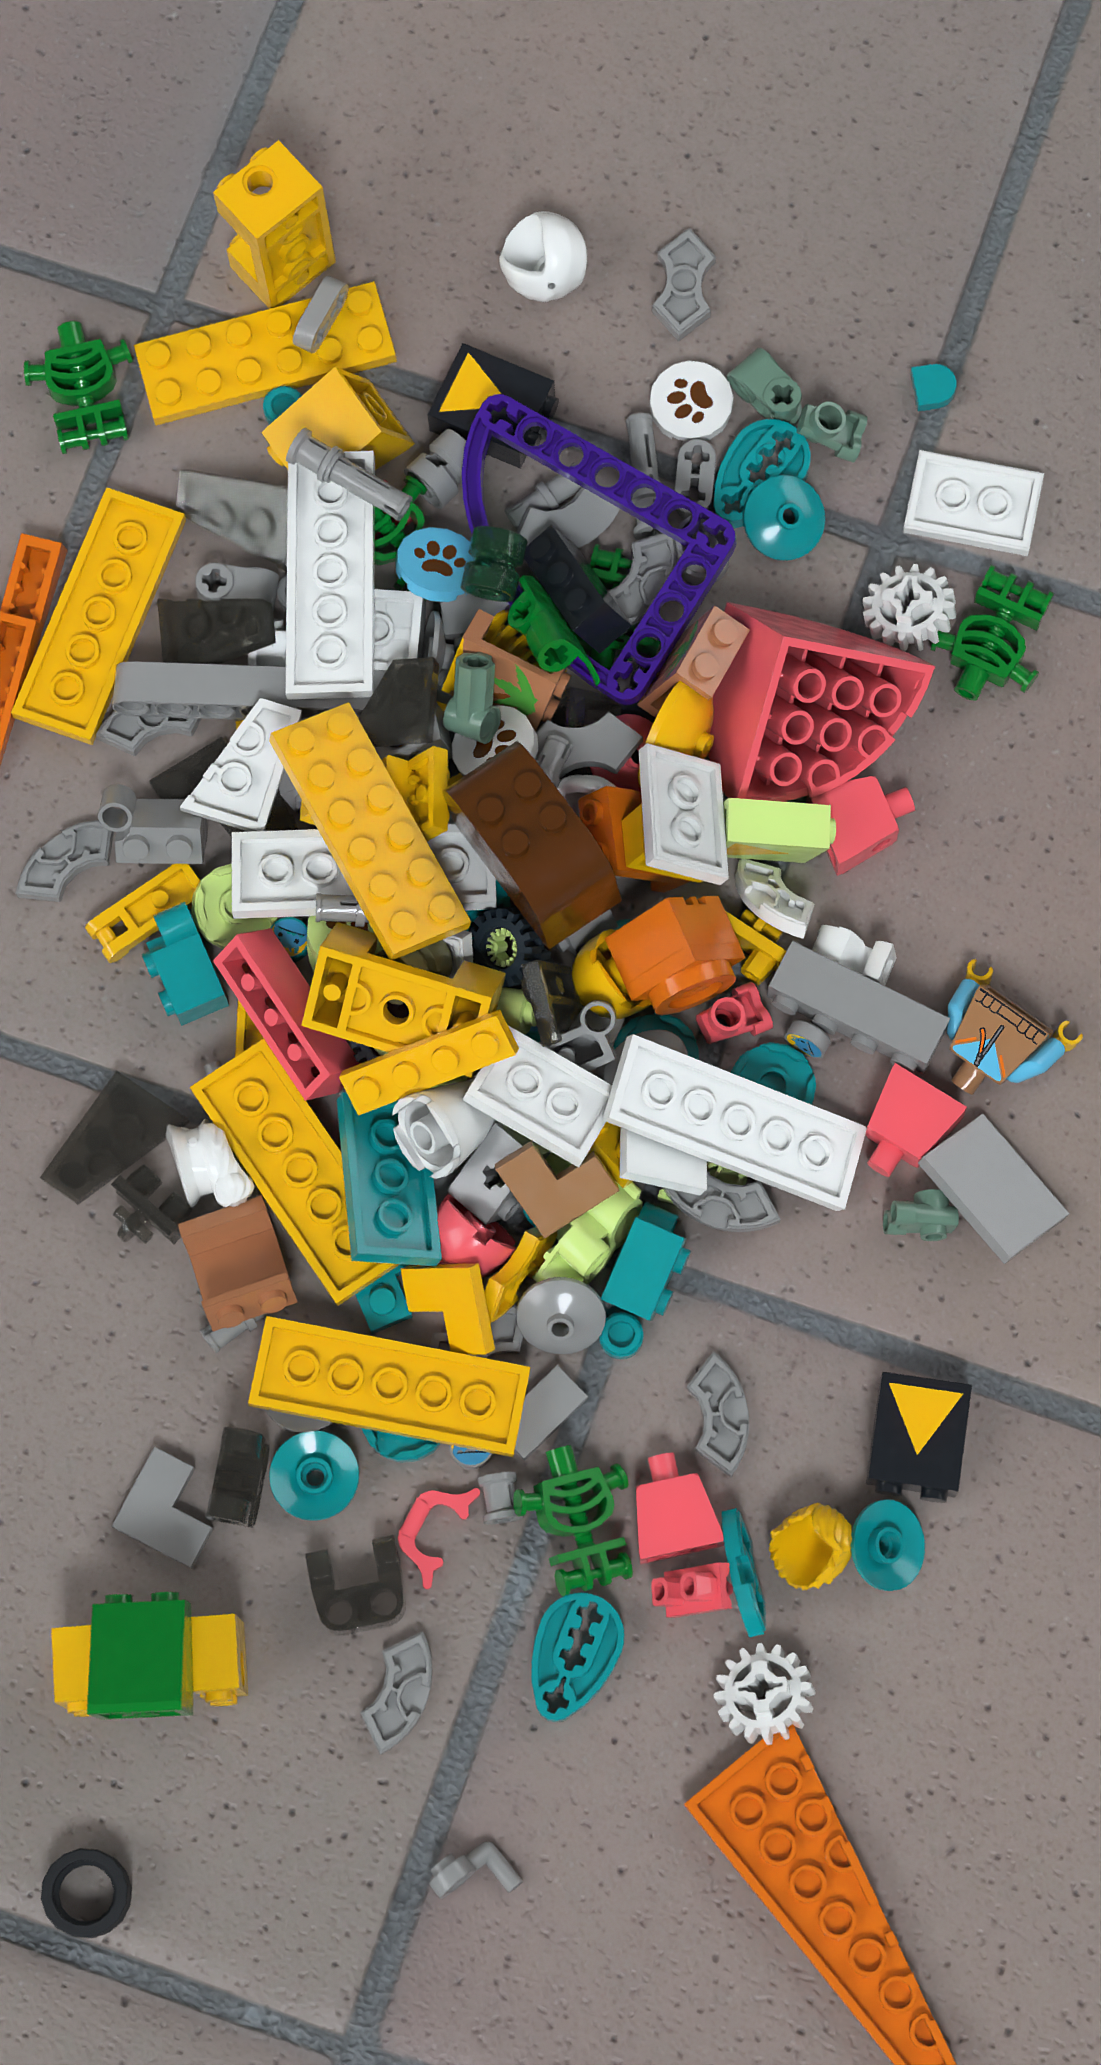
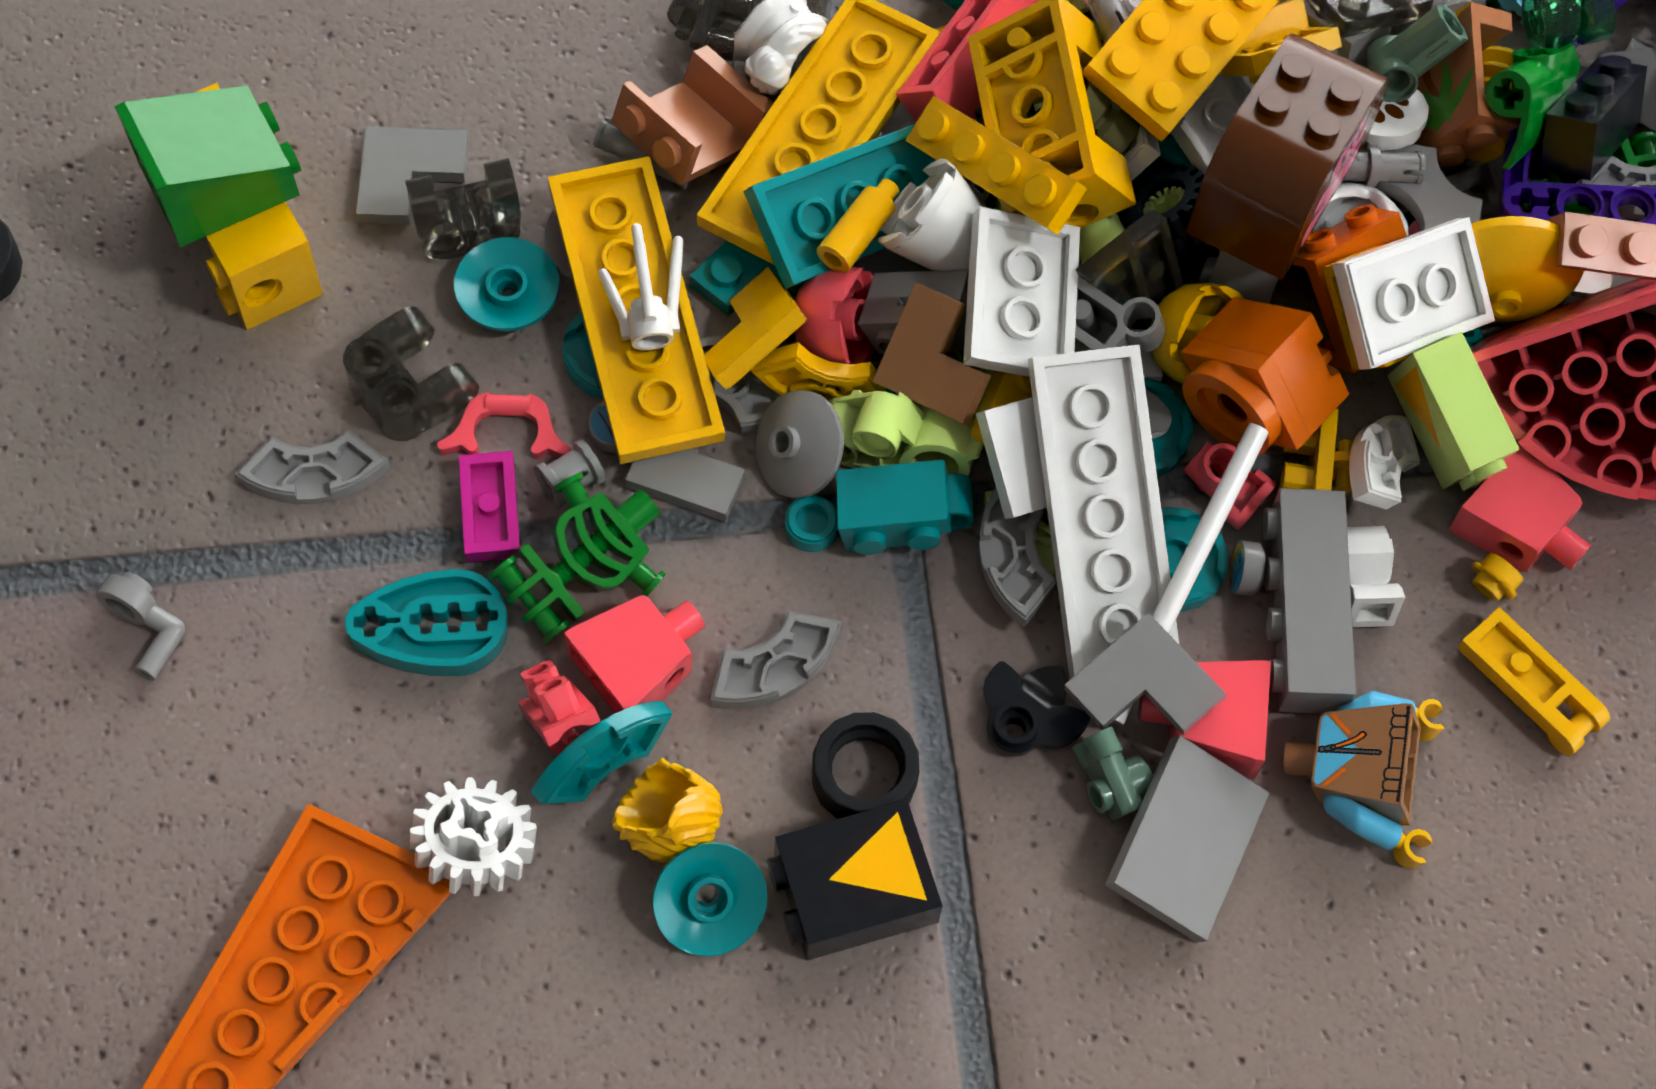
camera: 55 degrees right, 10 degrees down
(417, 1380) = (649, 321): none -> white plant
(418, 1186) = (858, 226): none -> yellow cylinder
(499, 1570) = (489, 506): none -> dark pink plate
(841, 1243) = (1034, 705): none -> black plate
(841, 1355) = (863, 727): none -> black tyre
(854, 1157) = (1207, 531): none -> white bar
(860, 1157) = (1146, 664): none -> light grey tile
(896, 866) = (1496, 578): none -> yellow plate
(983, 884) = (1534, 681): none -> yellow plate

